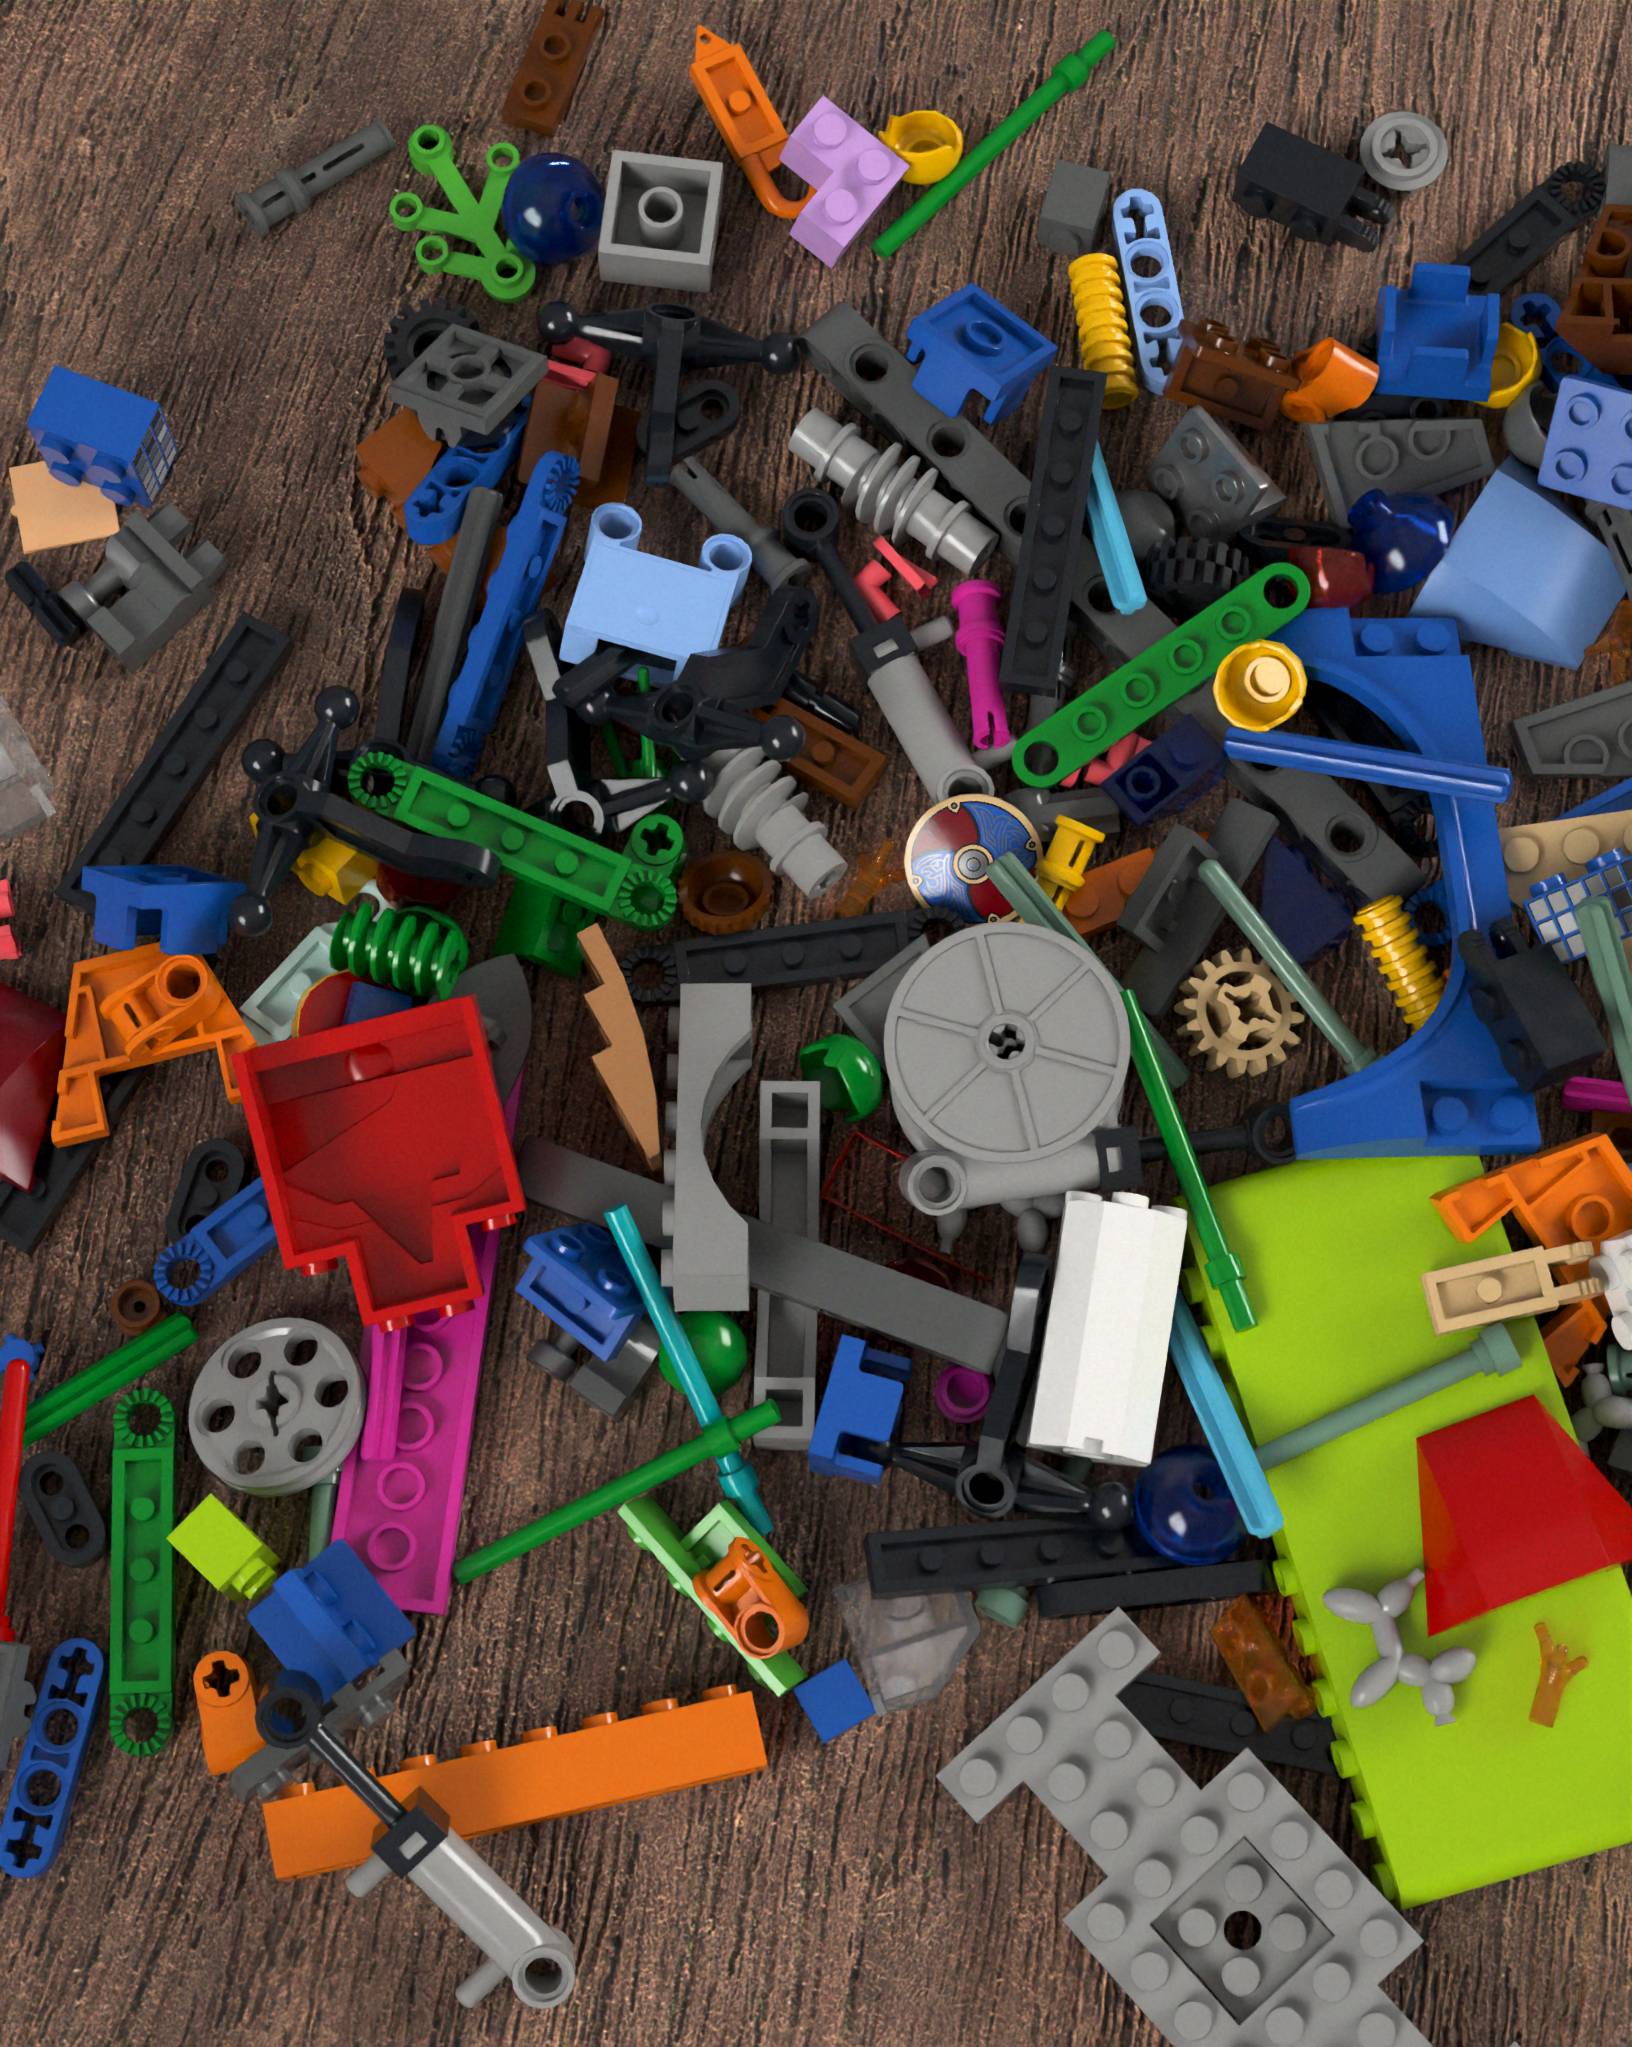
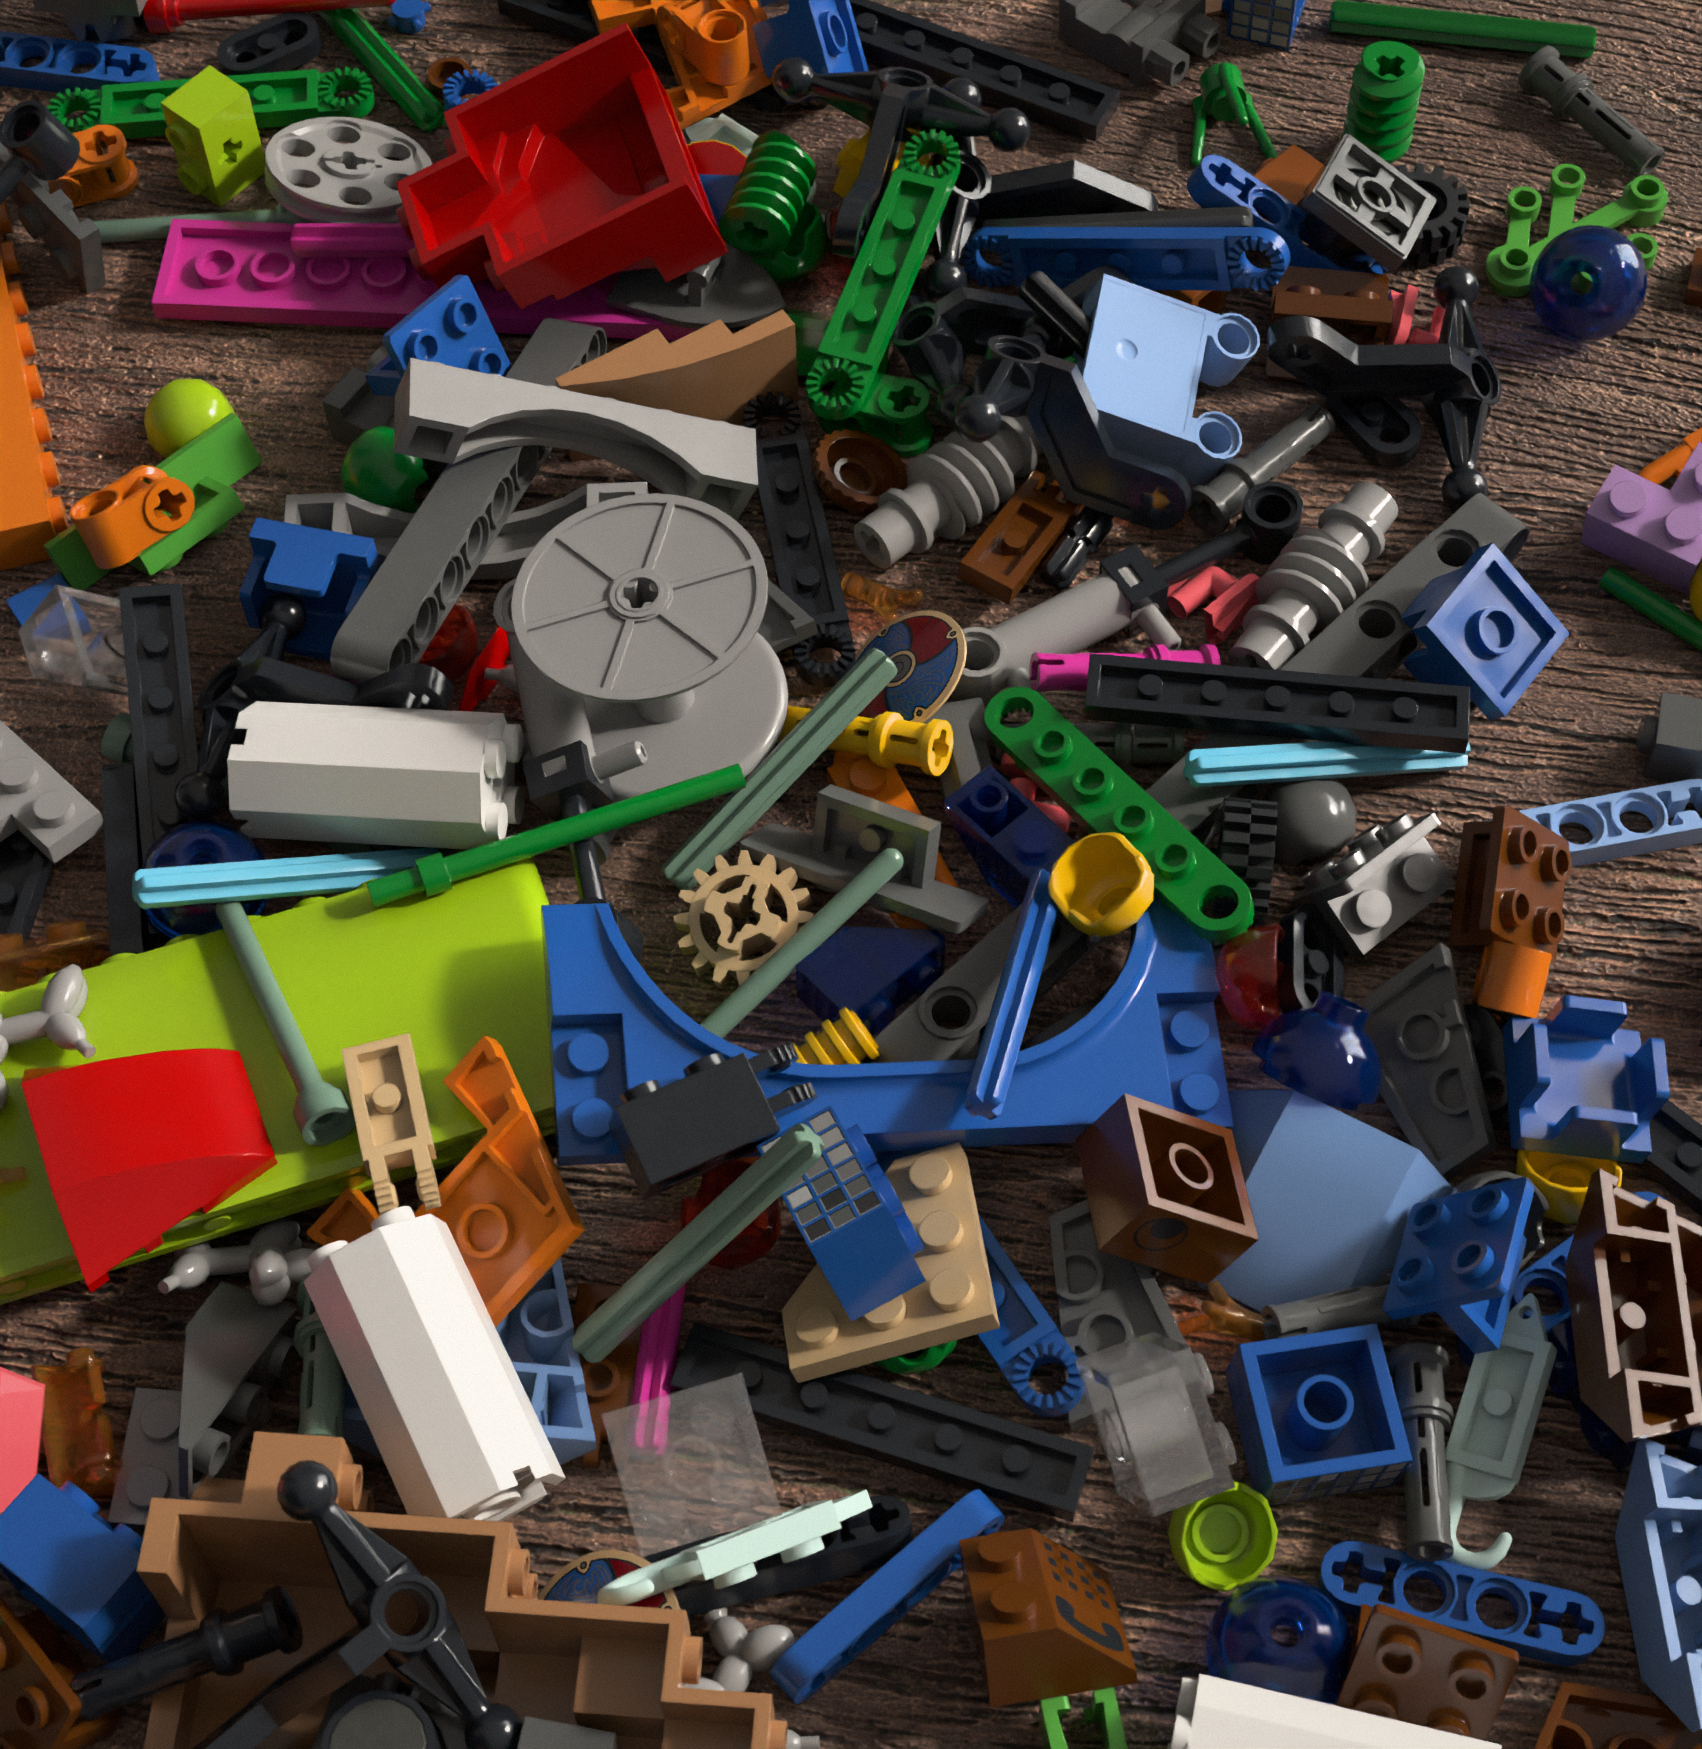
camera: 85 degrees right, 15 degrees down
(180, 278) = (1461, 28): none -> green axle
(255, 512) = (1225, 99): none -> green plant
(312, 357) = (1385, 98): none -> green piece
(331, 1619) = (146, 210): blue bracket -> none
(598, 1569) = (182, 413): none -> lime hair
(660, 221) = (1591, 369): light grey brick -> none
(718, 1439) = (282, 463): green bar -> none
(736, 1474) = (340, 448): teal bar -> none
(1103, 326) = (1544, 776): yellow piece -> none
(1534, 669) = (1166, 1189): none -> reddish brown brick

